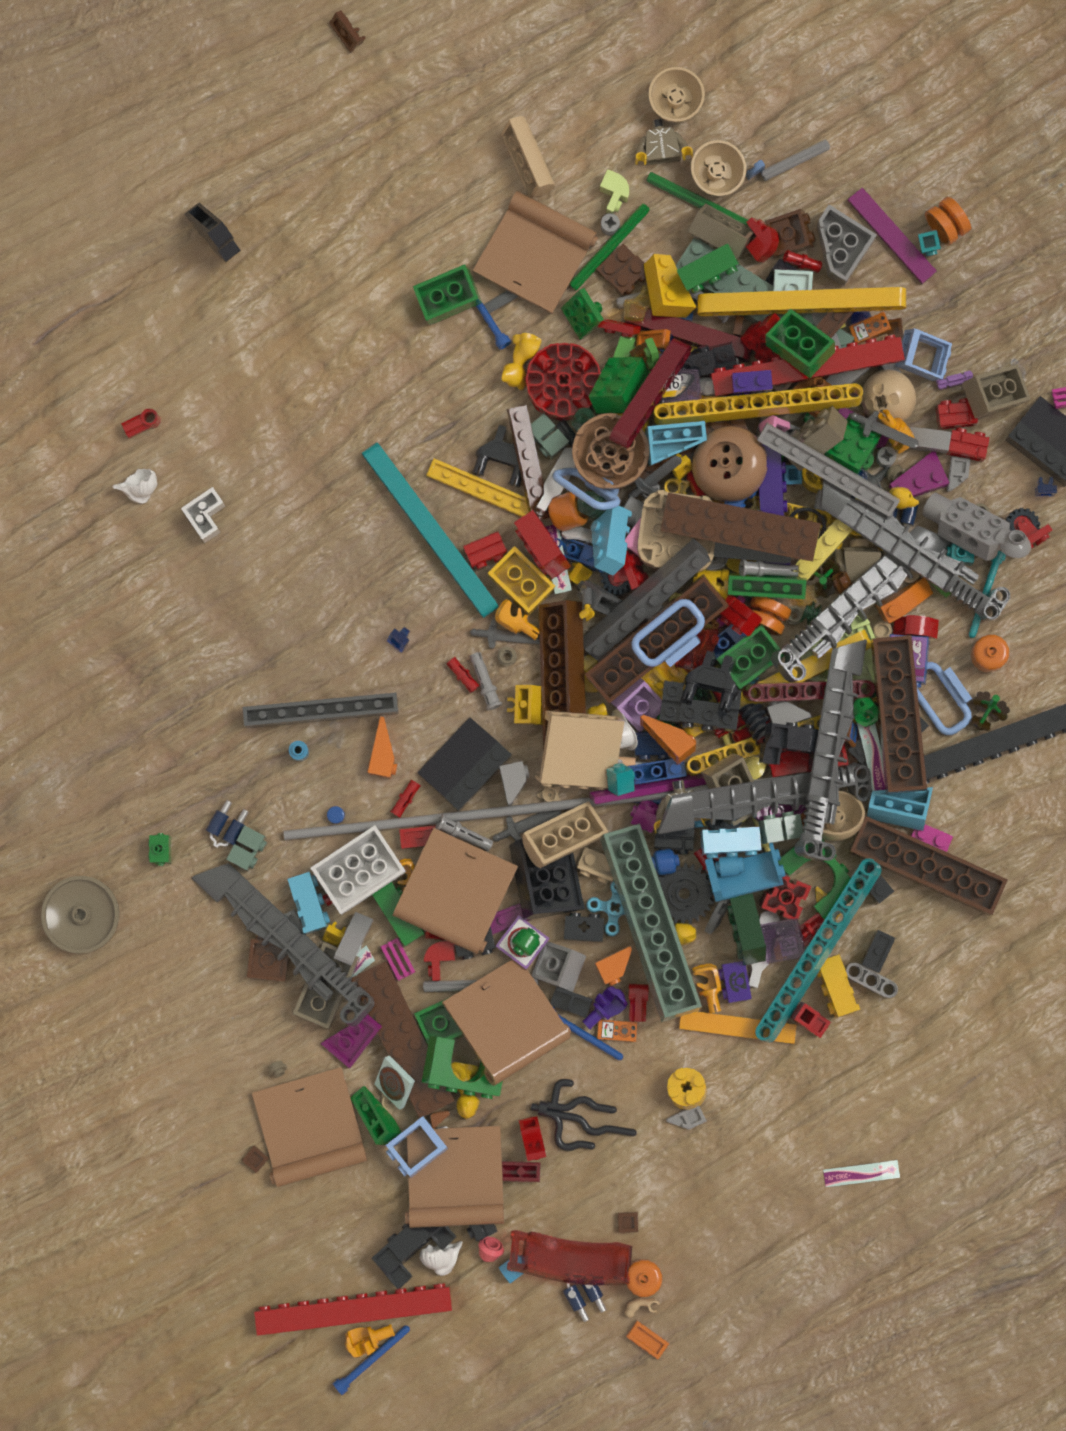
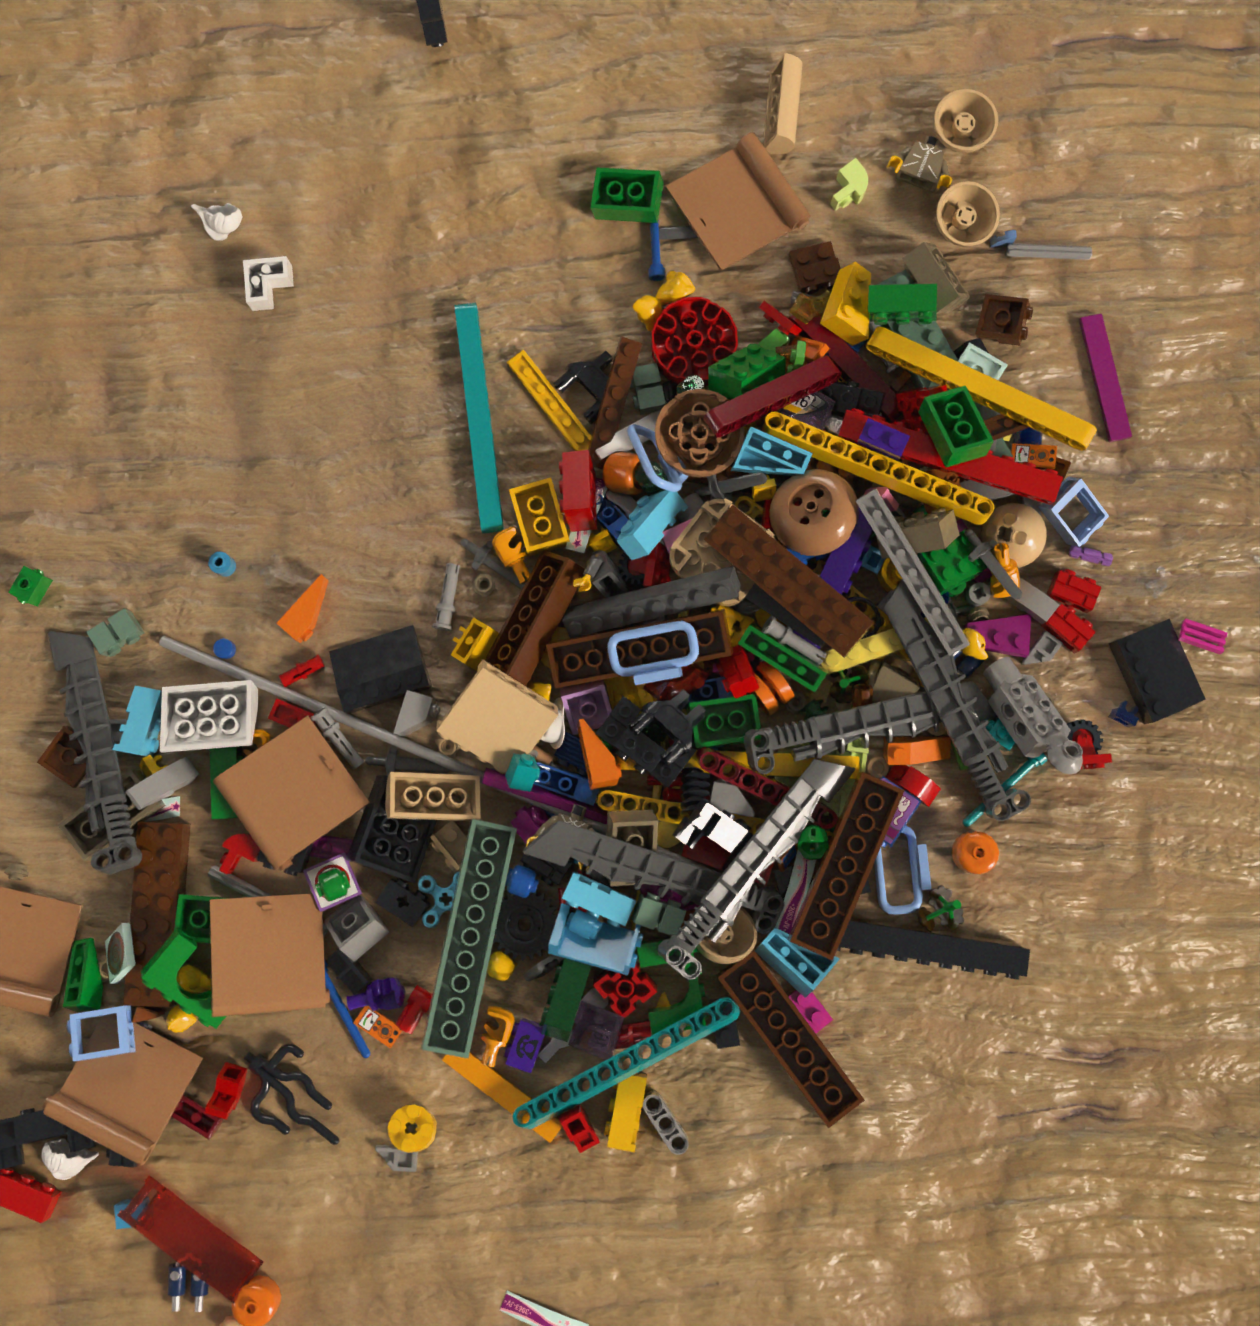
camera: 30 degrees right, 0 degrees up
(139, 424) = (257, 161): red piece -> none
(218, 822) = (104, 591): dark blue piece -> none
(320, 710) = (266, 535): dark grey brick -> none
(352, 1040) = (102, 888): magenta wing -> none
(390, 944) = (193, 827): dark pink tile -> none
(399, 639) = (387, 509): clear blue tile -> none
(462, 675) = (429, 579): red pin -> none
(485, 551) = (521, 467): red brick -> none
(490, 1249) = (120, 1180): coral cone -> none
(582, 313) = (751, 285): green plate -> none
(609, 228) = (828, 220): light grey wheel -> none
(609, 247) = (815, 237): green axle -> none
(614, 966) = (408, 959): orange slope -> none
(627, 1222) = (277, 1231): reddish brown tile -> none
(689, 196) = (922, 229): green axle -> none
(766, 241) = (972, 315): red brick -> none
(802, 261) = (1001, 352): red pin -> none
(842, 243) = (1052, 356): light grey brick -> none
(877, 951) = (688, 1096): black panel -> none
(929, 243) = (1141, 403): teal brick -> none
(948, 220) = (1173, 391): orange wheel -> none
(996, 391) = (1129, 588): dark tan brick -> none

